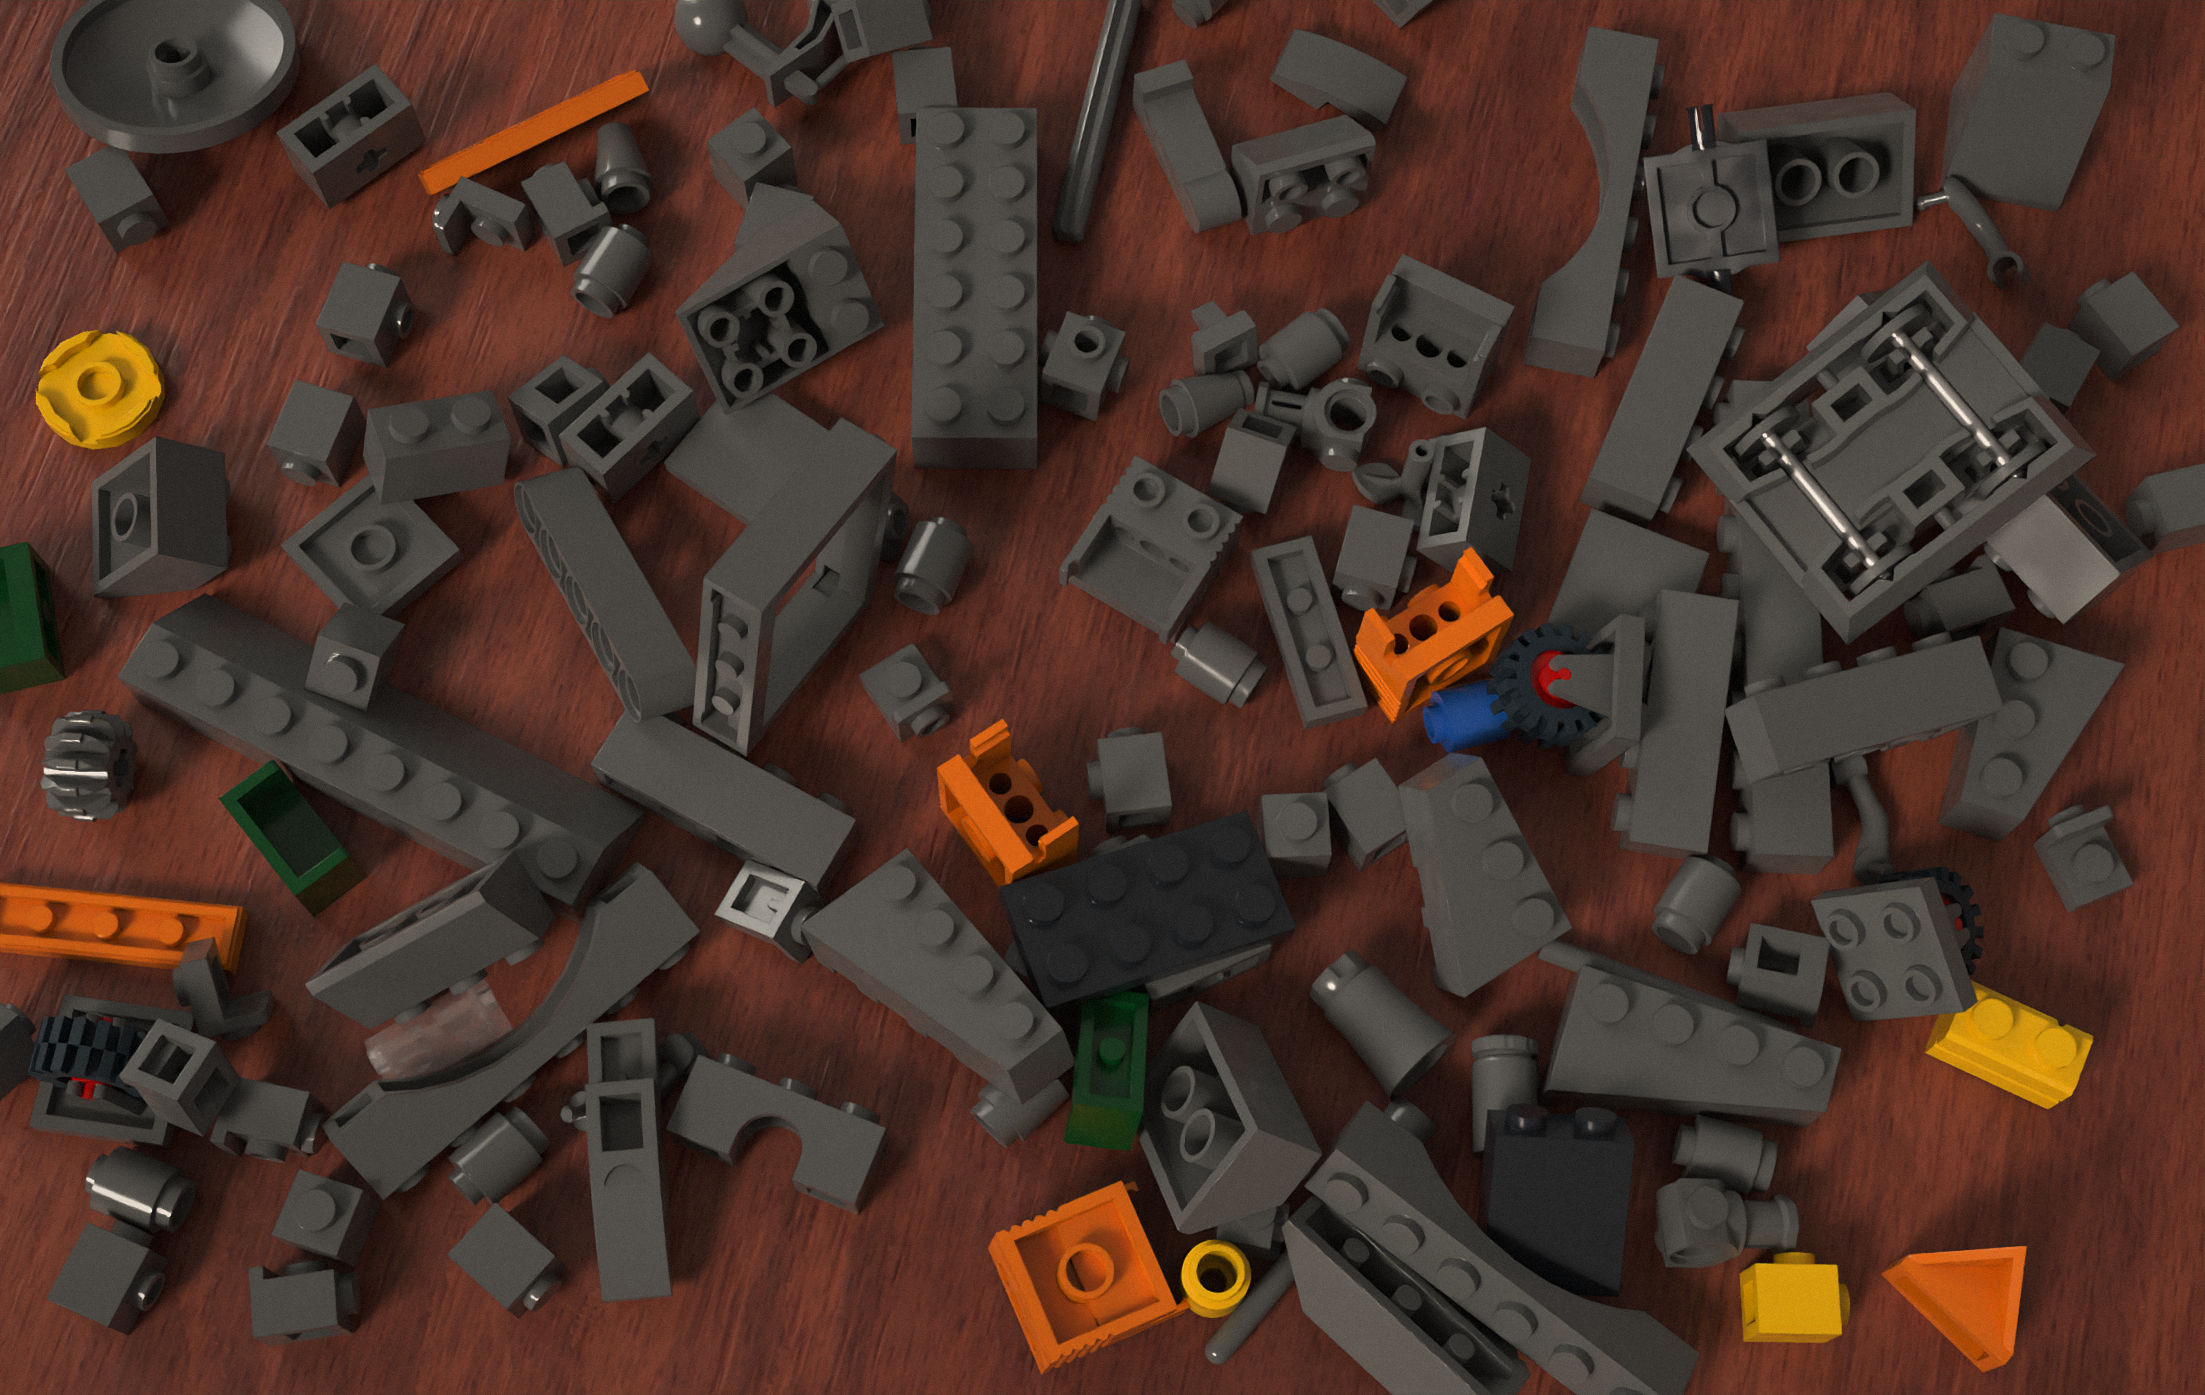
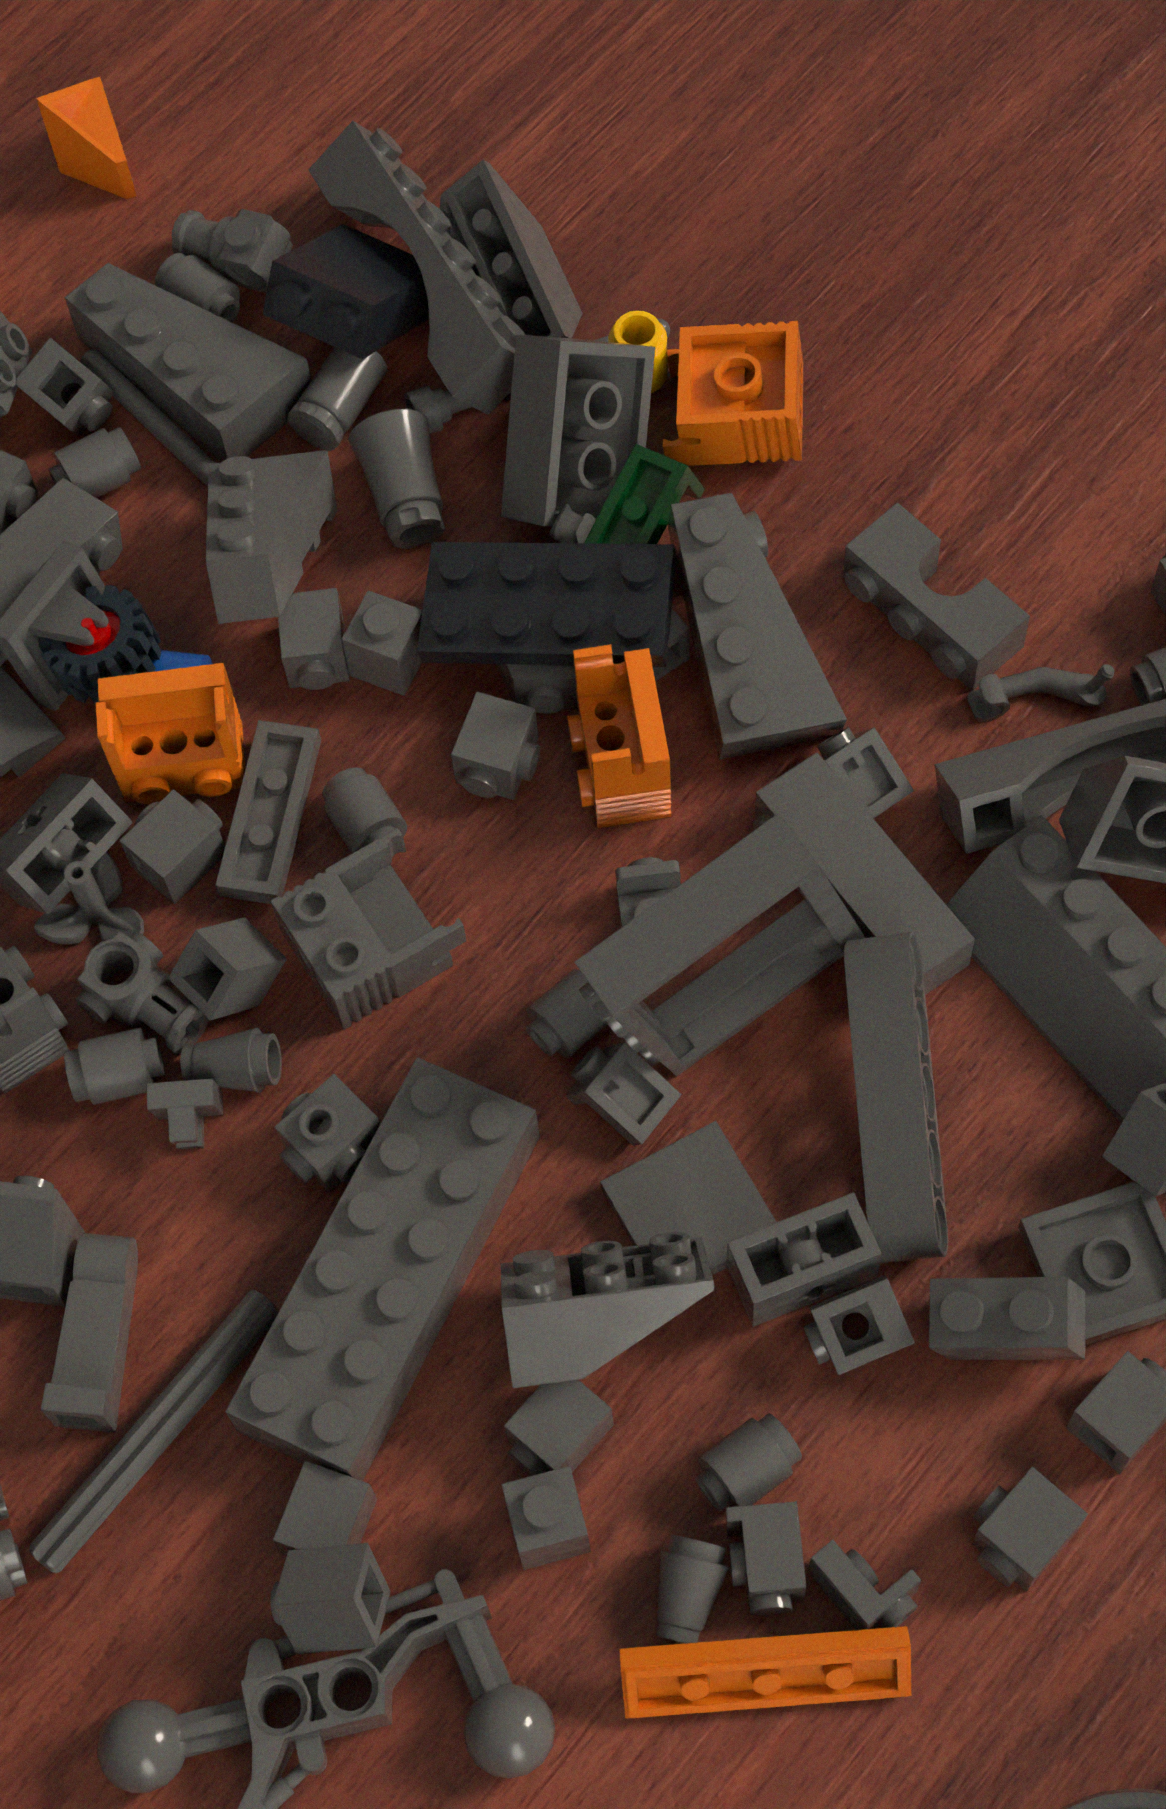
camera: 145 degrees left, 5 degrees down
(352, 136) = (971, 1744): dark grey brick -> none
(628, 1161) = (1066, 626): dark grey slope -> none
(1167, 1019) = (571, 527): none -> dark grey hand
(1793, 1300) = (217, 180): yellow brick -> none

